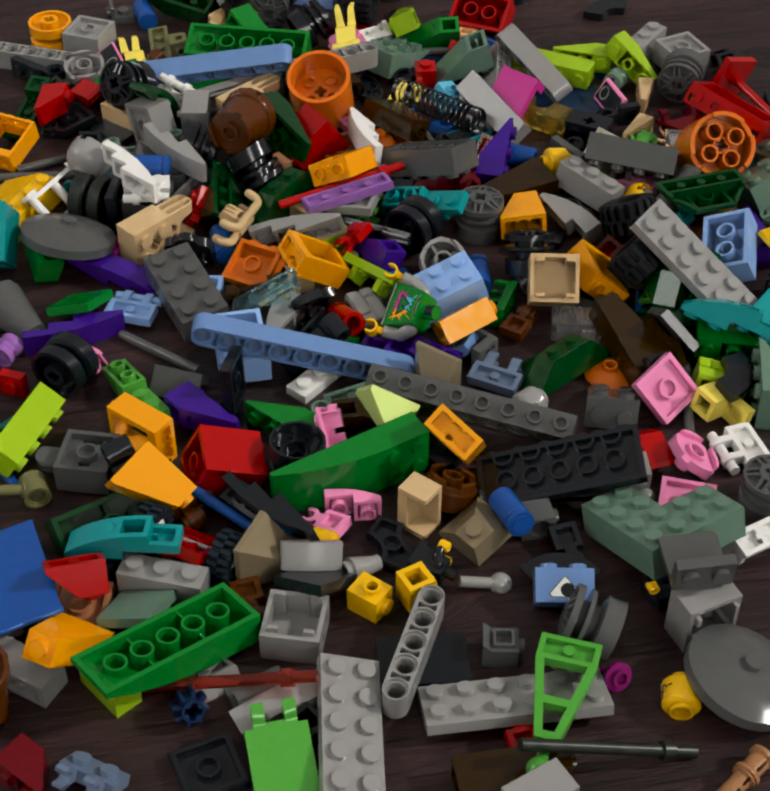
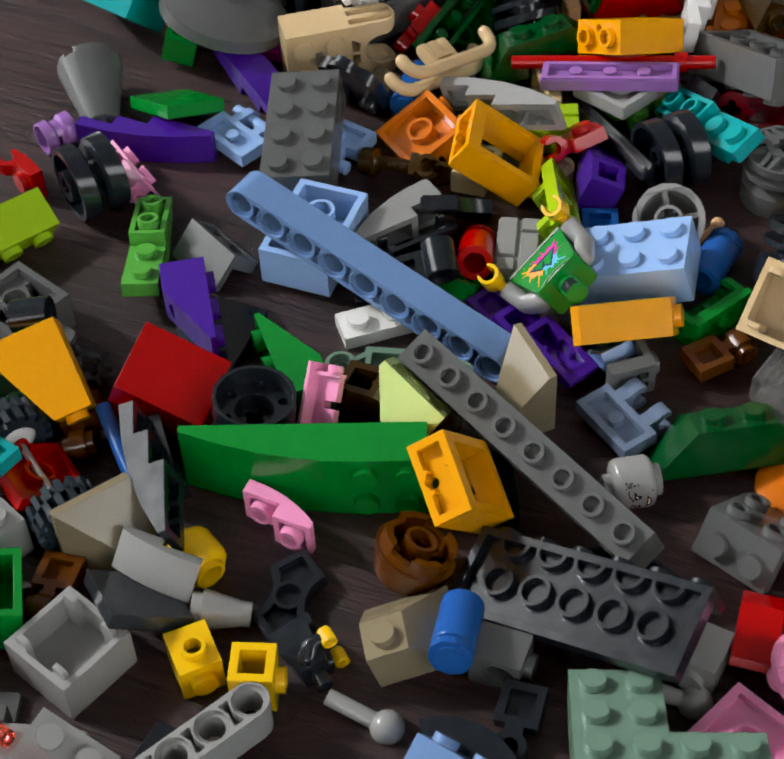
camera: 35 degrees right, 5 degrees up
(129, 412) = (104, 299): light orange window -> none
(159, 352) = (220, 192): dark grey bar -> none
(232, 380) = (252, 279): black tile -> none
(268, 292) = (394, 177): clear light blue plate -> none
(329, 520) = (231, 528): bright pink plate -> none
(419, 505) = (350, 560): tan panel -> none

